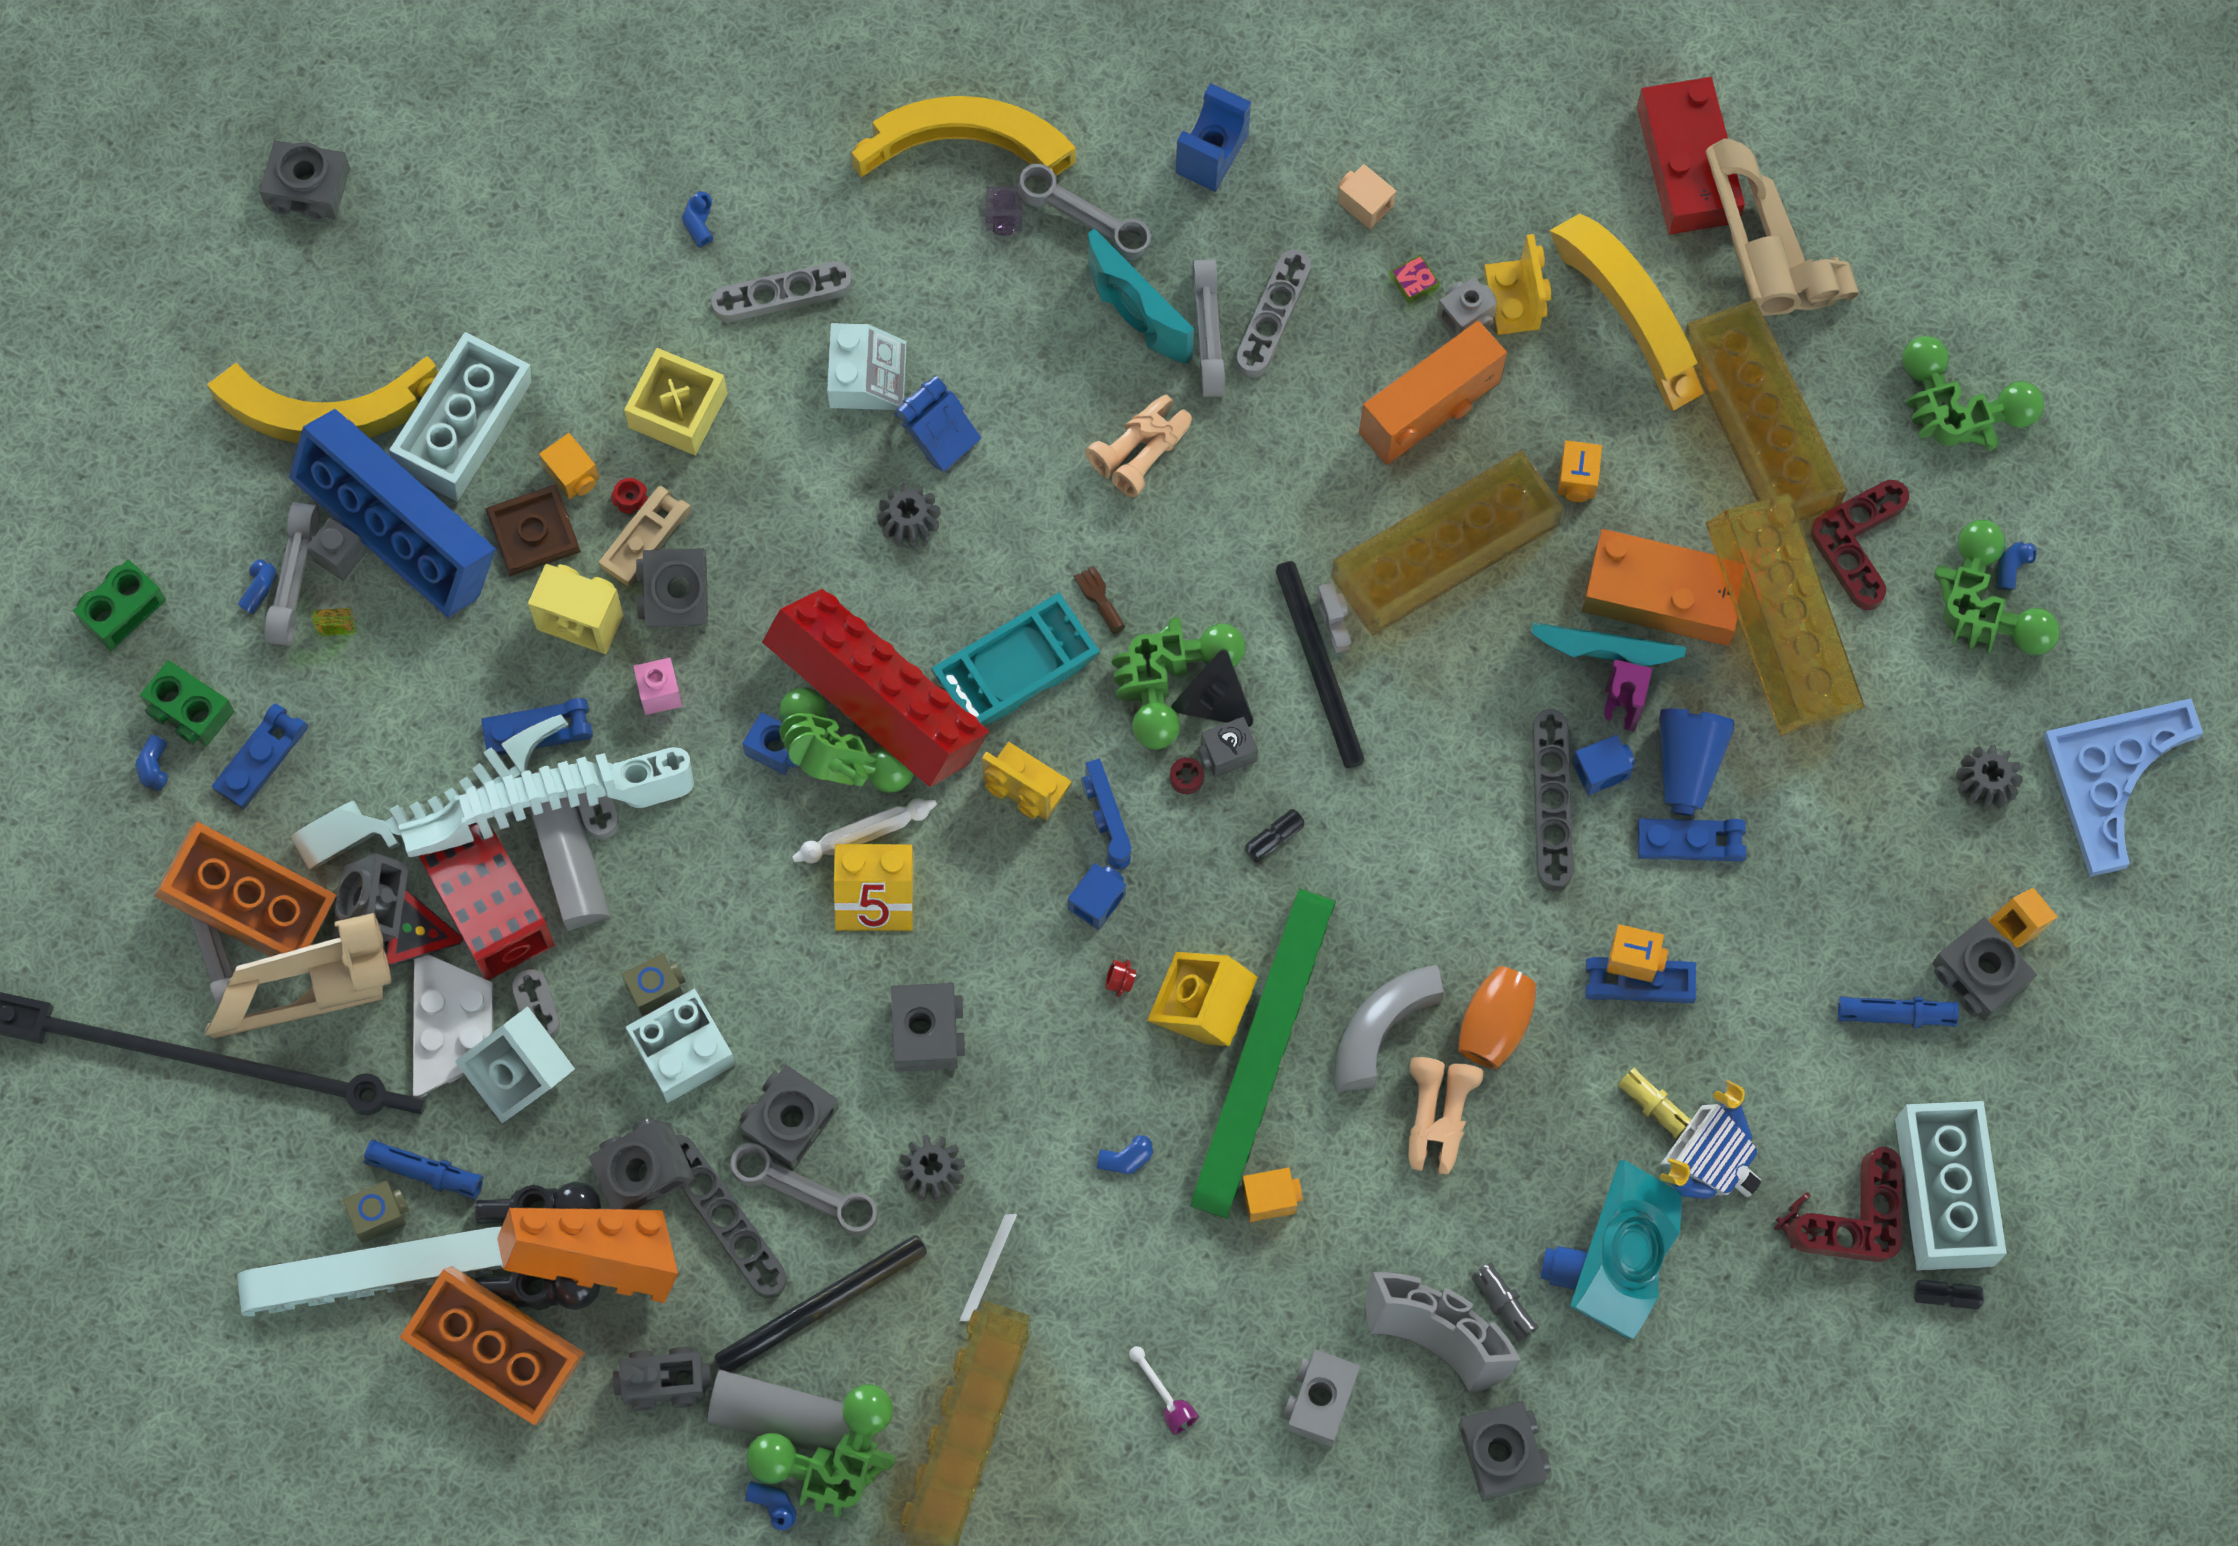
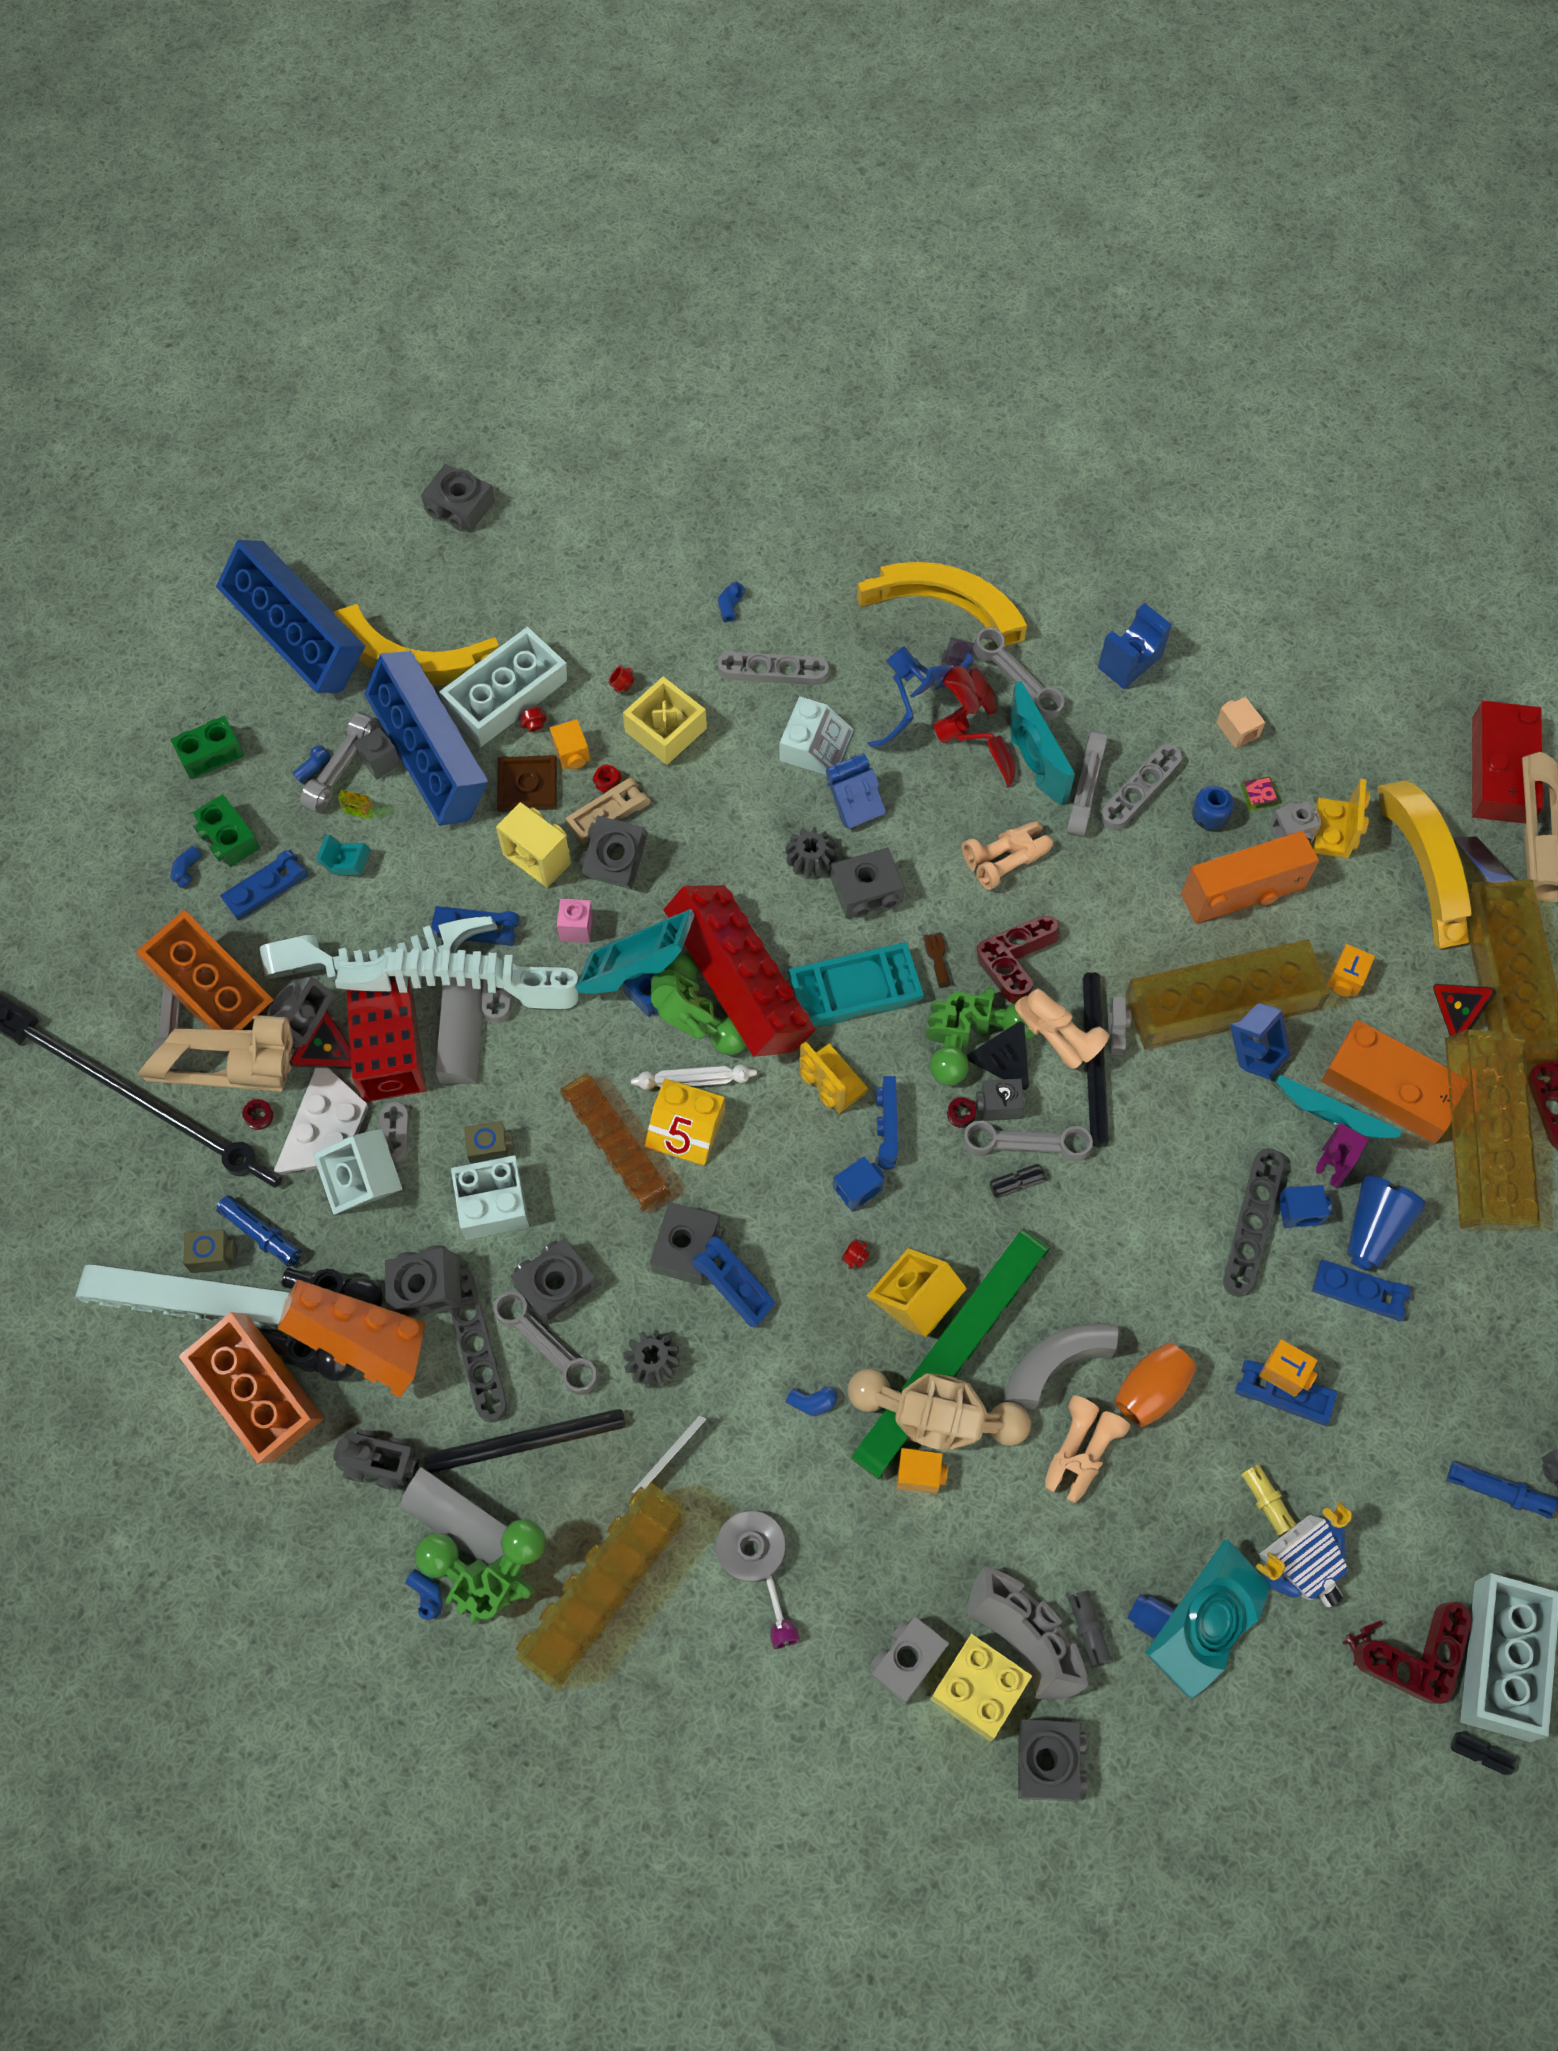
camera: 20 degrees right, 5 degrees down
(158, 405) = (290, 616): none -> blue brick
(345, 693) = (342, 858): none -> teal bracket
(374, 1026) = (264, 1121): none -> dark red bush
(510, 447) = (532, 719): none -> red plate
(601, 361) = (621, 679): none -> red plate
(749, 708) = (635, 955): none -> teal slope
(801, 933) = (617, 1142): none -> clear orange beam
(954, 254) = (907, 667): none -> blue plant
(987, 554) = (861, 898): none -> dark grey brick
(995, 1052) = (734, 1281): none -> blue plate
(1035, 260) = (969, 688): none -> red plant
(1106, 1316) = (745, 1529): none -> light grey dish
(1181, 568) = (1044, 933): none -> dark red beam
(1263, 640) = (1055, 1024): none -> light nougat piece
(1271, 1121) = (939, 1410): none -> tan piece
(1272, 786) = (1027, 1141): none -> light grey piece
(1365, 316) = (1212, 807): none -> blue head
(1408, 1400) = (981, 1688): none -> light yellow brick
(1502, 587) = (1261, 1041): none -> blue window
(1694, 287) = (1483, 859): none -> black sticker
(1715, 474) = (1462, 1005): none -> piece

